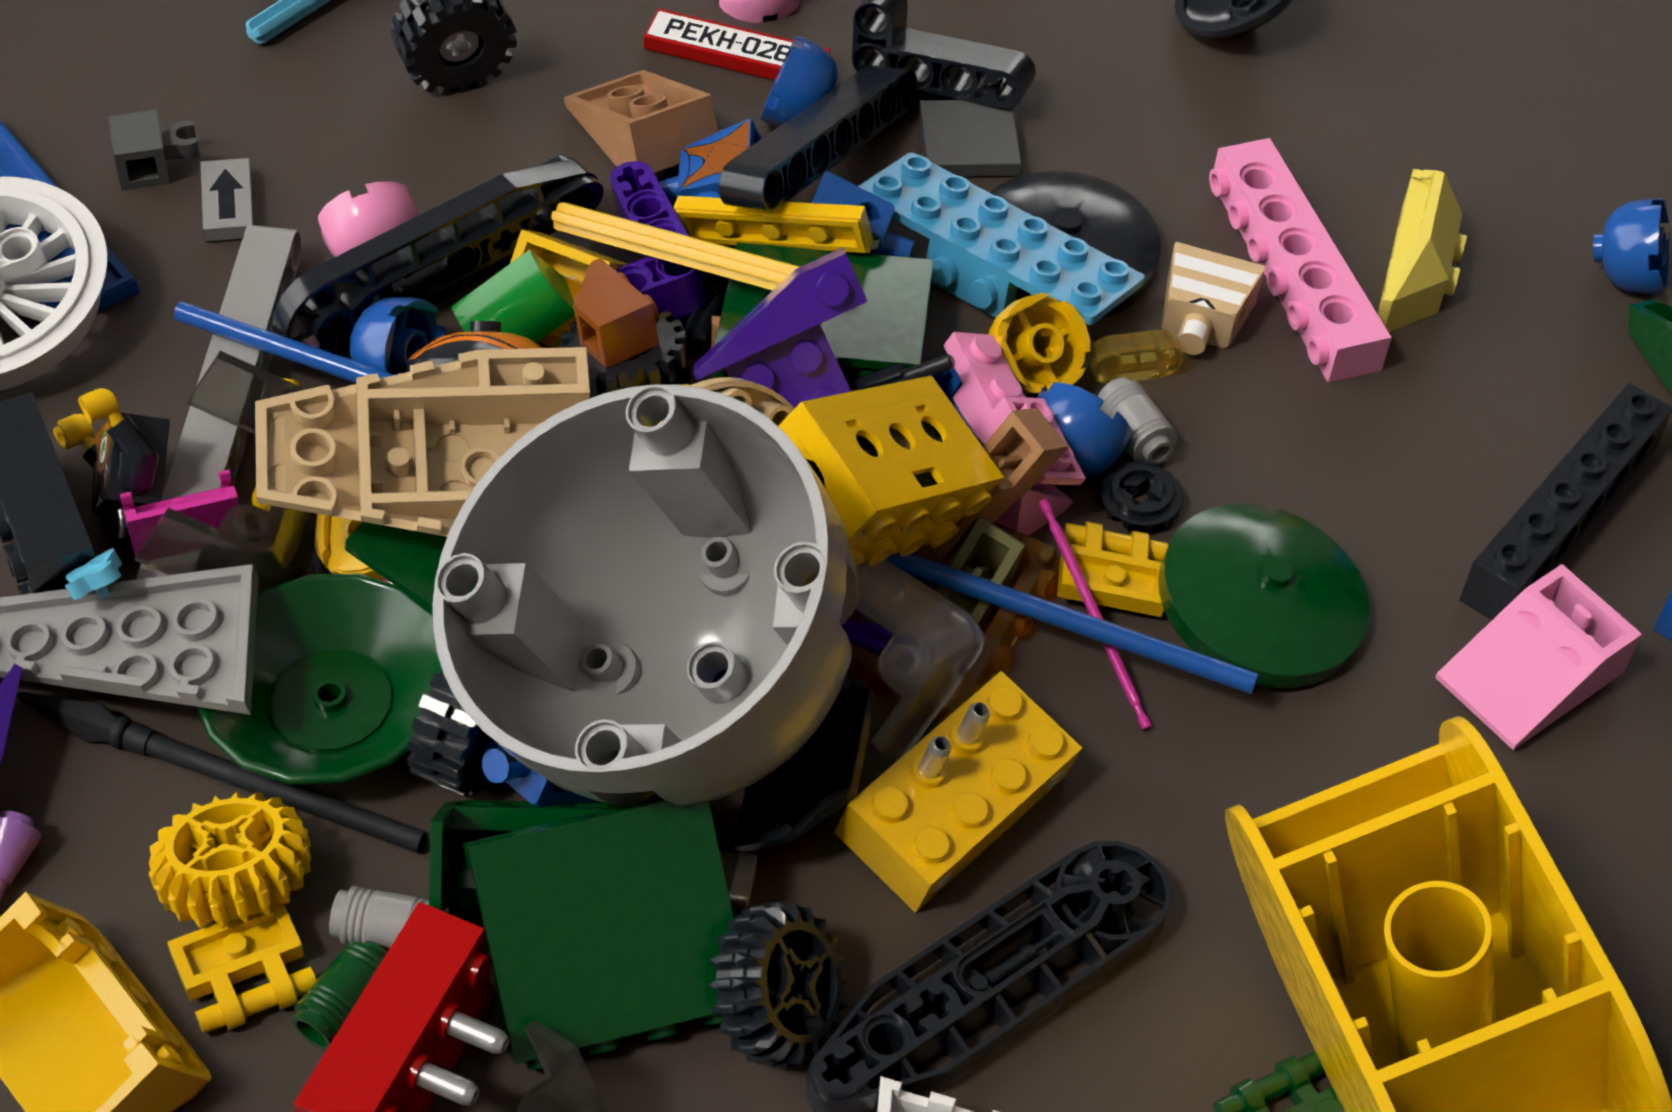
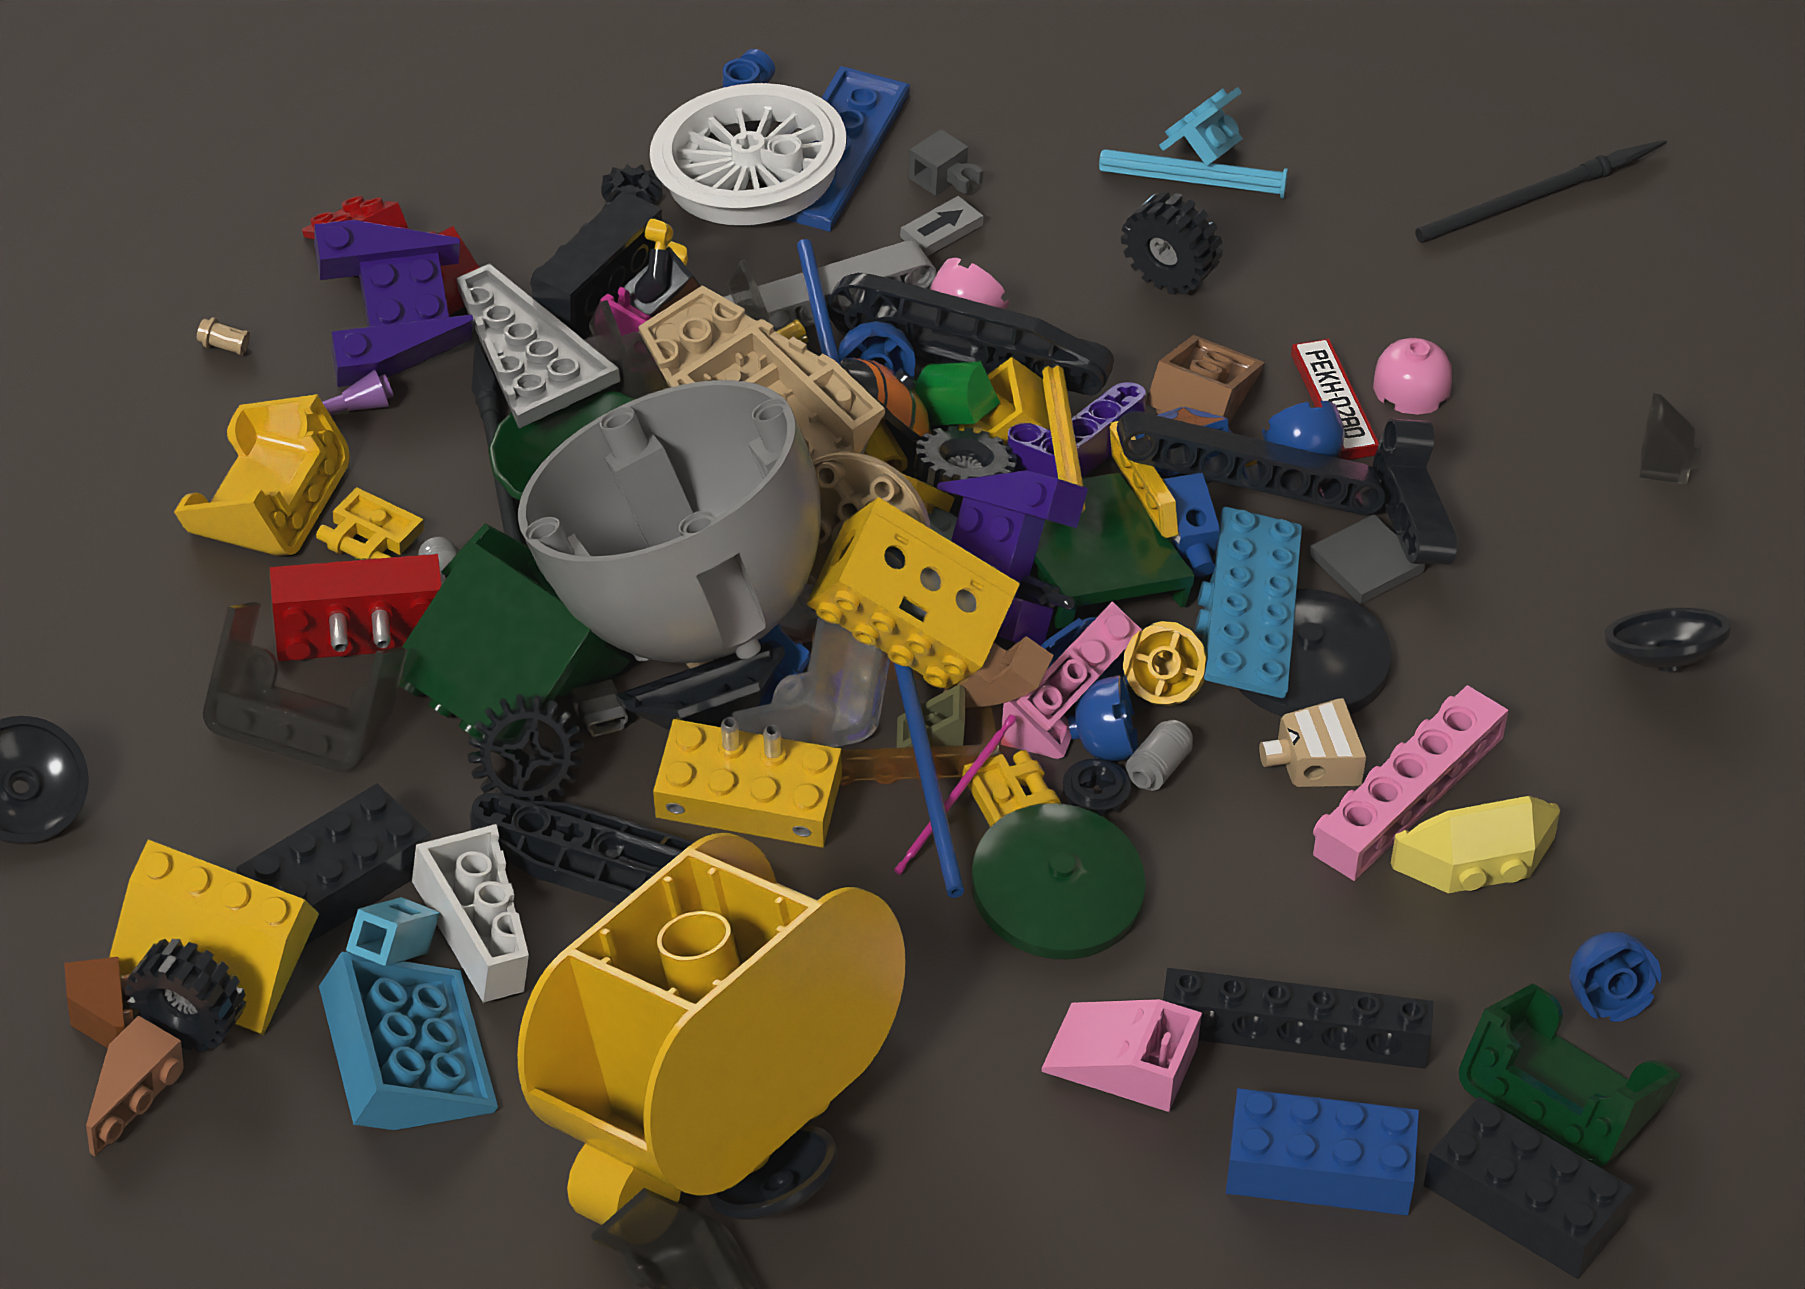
camera: 60 degrees right, 5 degrees down
(94, 575) = (554, 308): medium azure piece -> none
(230, 859) = (427, 481): yellow gear -> none
(614, 316) = (971, 431): dark orange slope -> none
(1135, 356) = (1223, 730): clear yellow beam -> none

